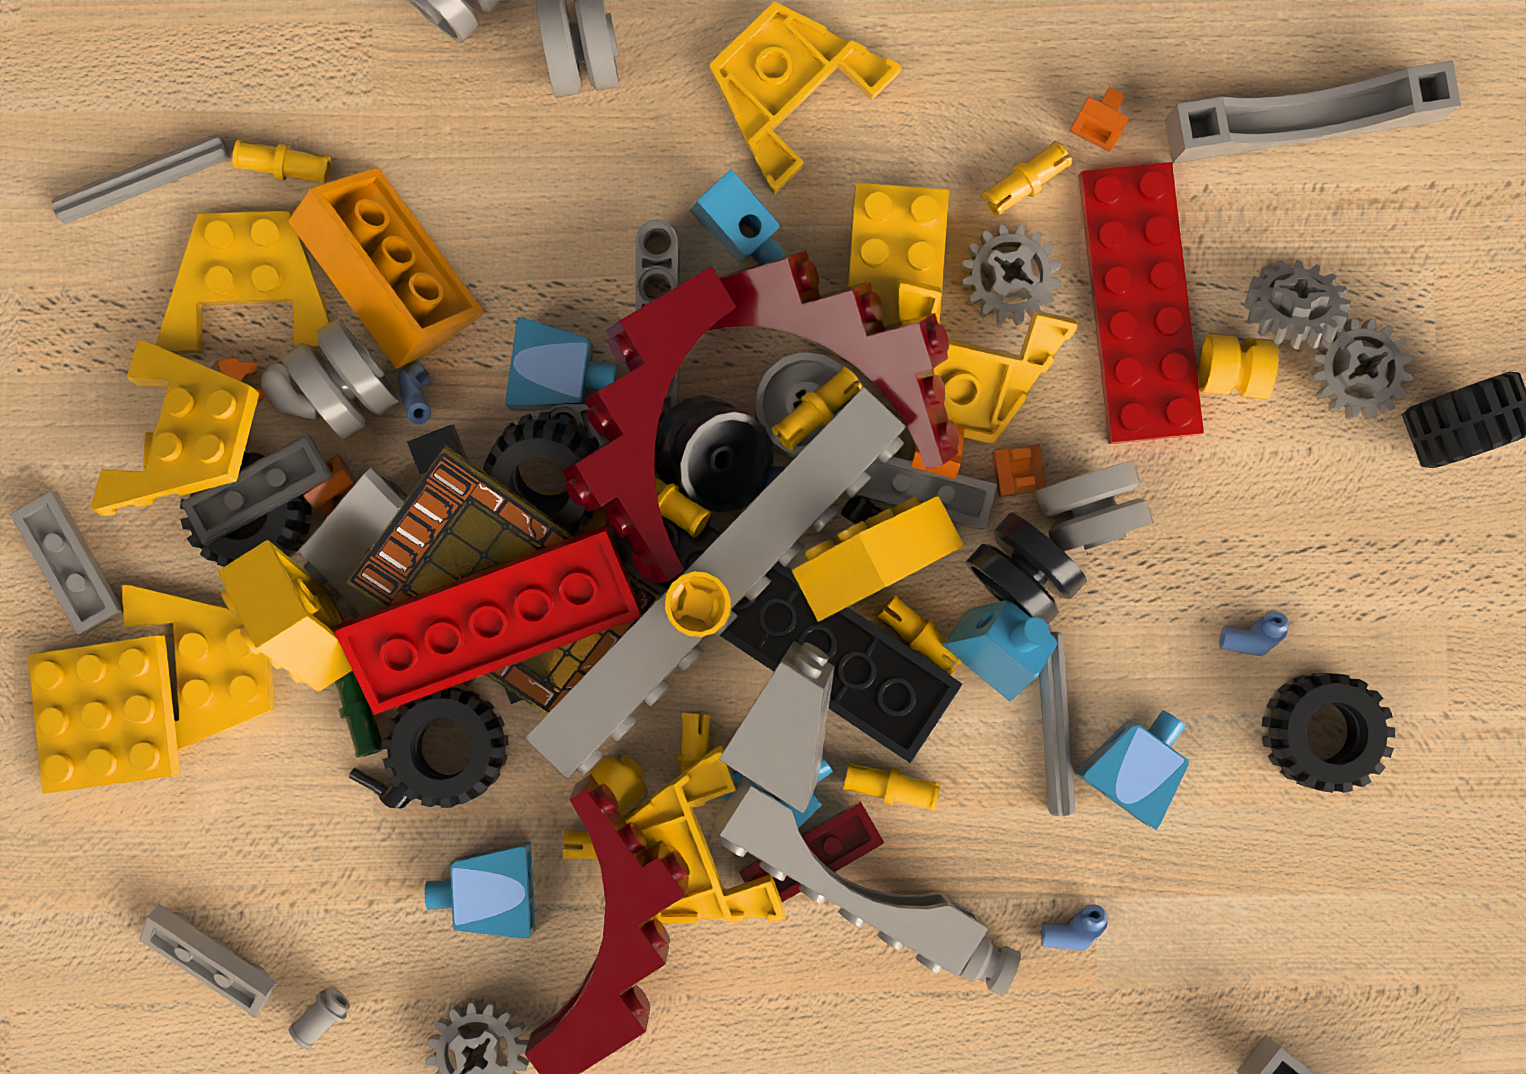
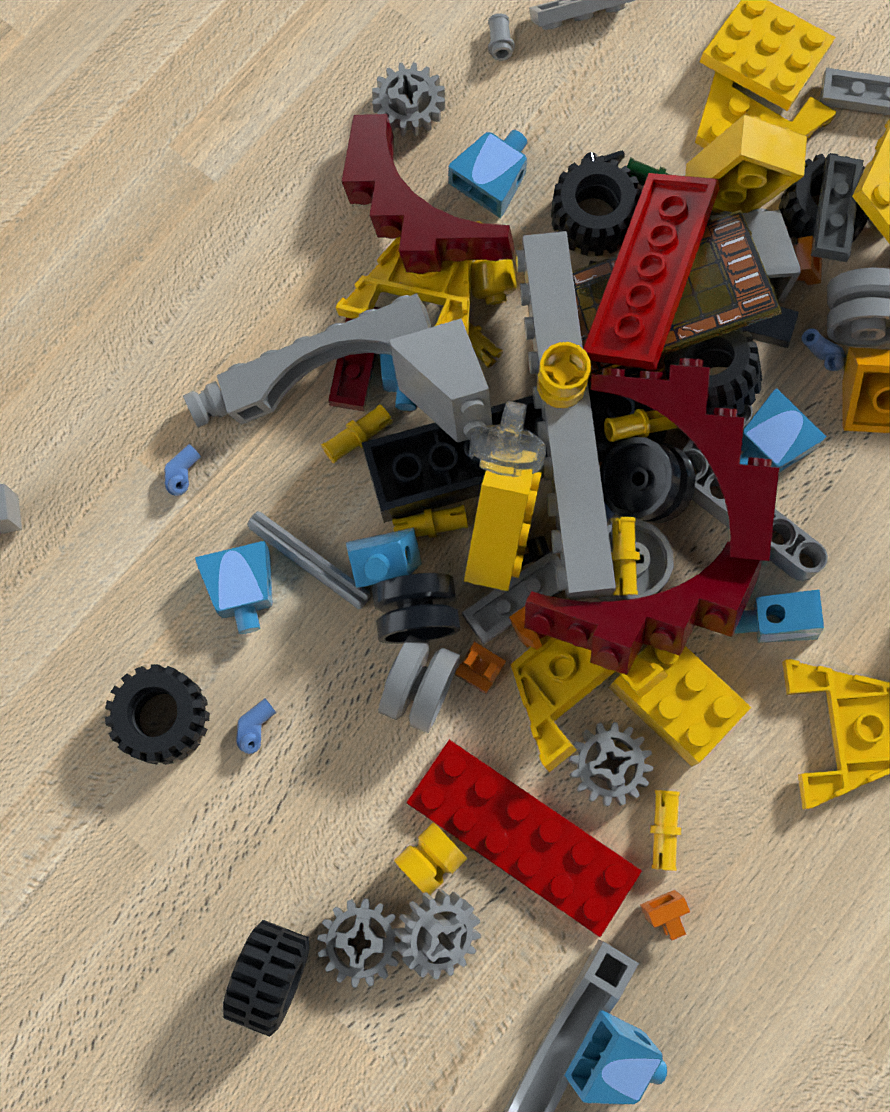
camera: 135 degrees right, 10 degrees down
(813, 602) = (508, 447): none -> clear tile
(1273, 61) = (615, 1063): none -> dark azure torso

